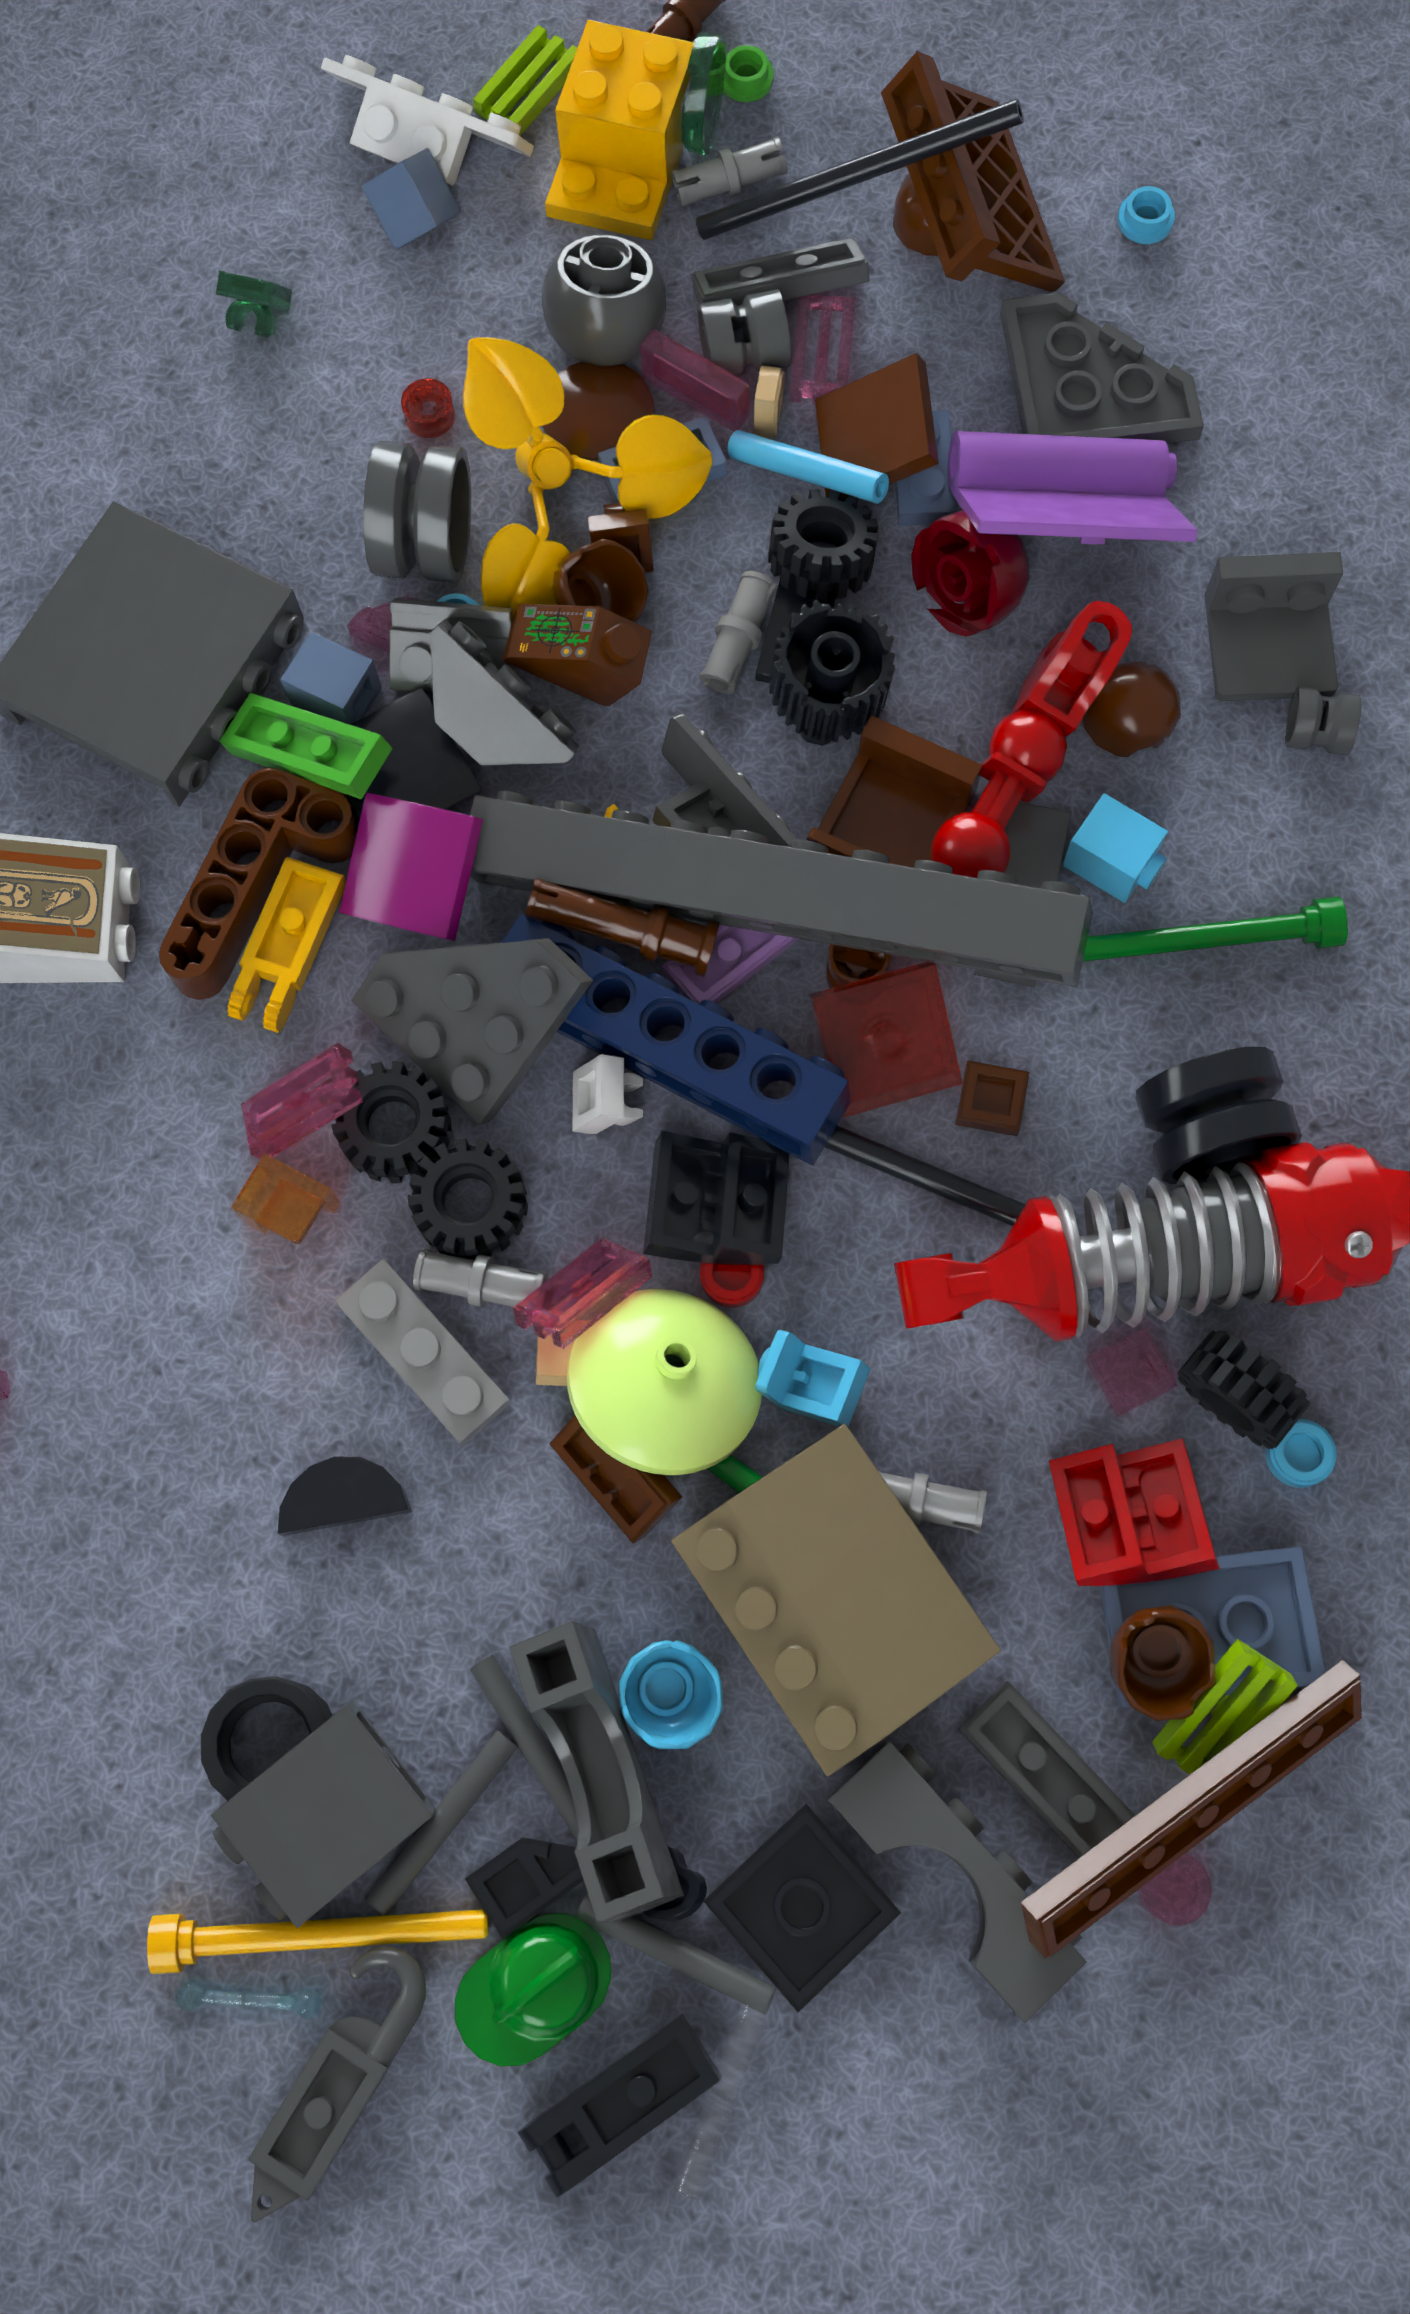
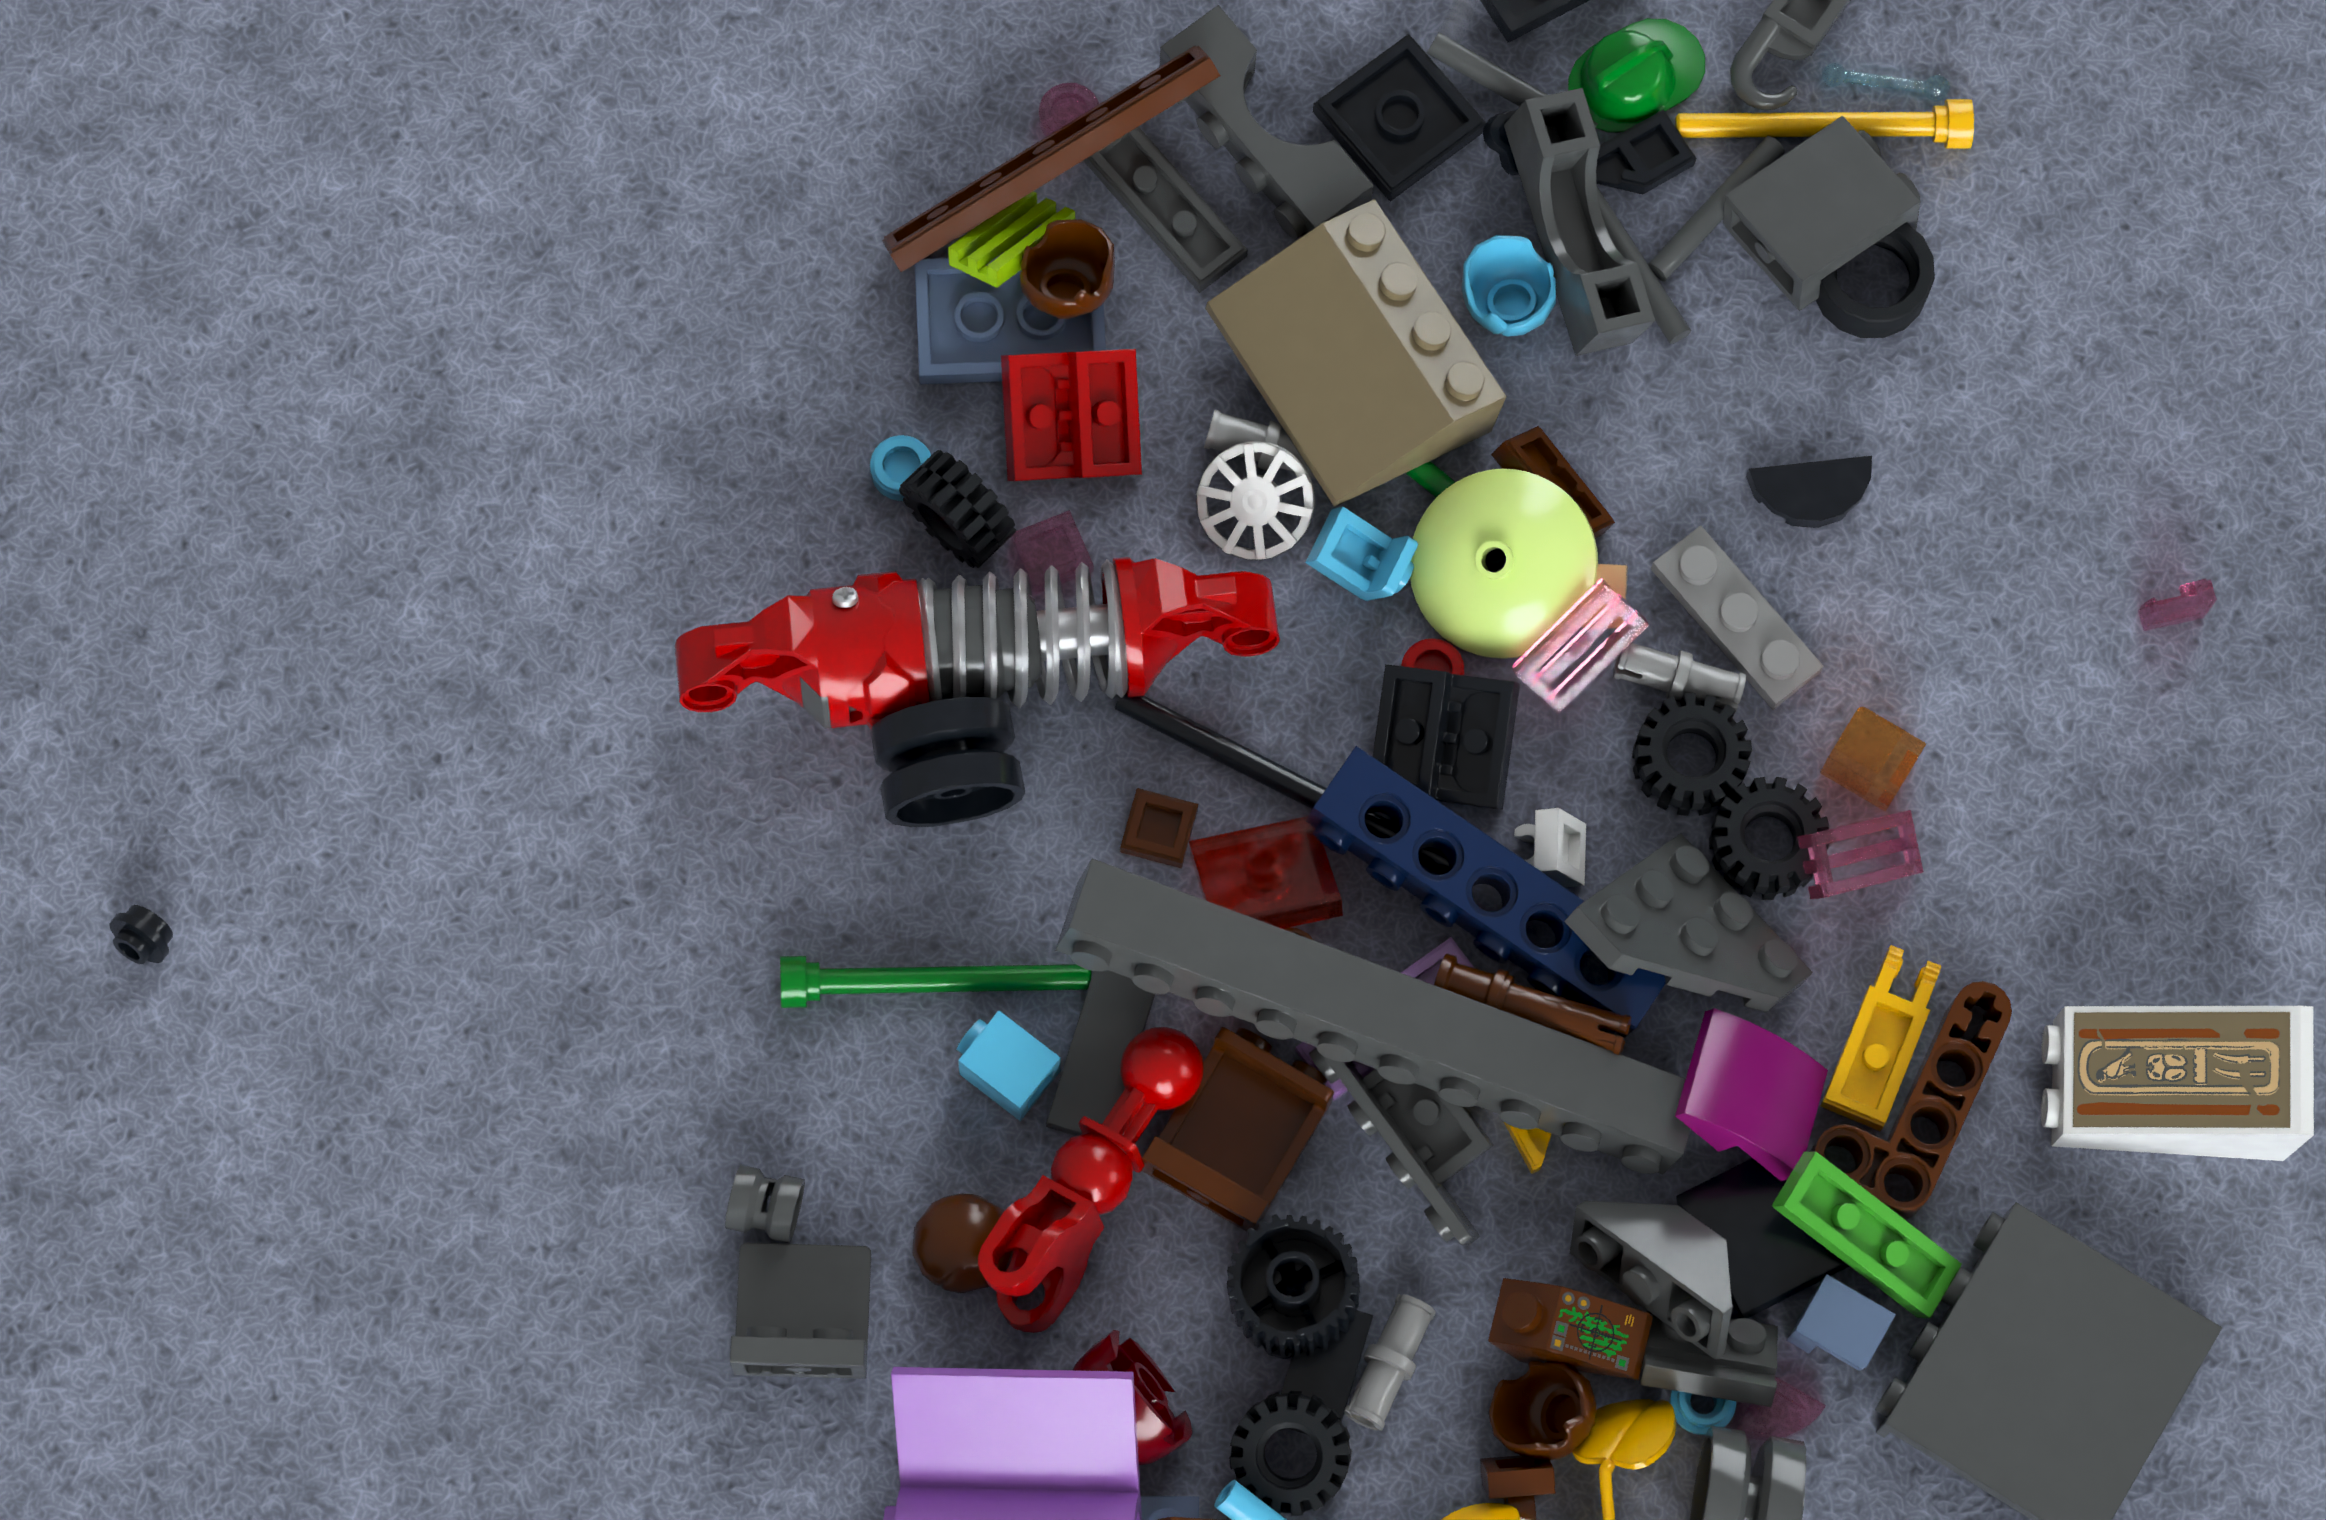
camera: 175 degrees right, 0 degrees up
(927, 1434) = (1255, 500): none -> white wheel

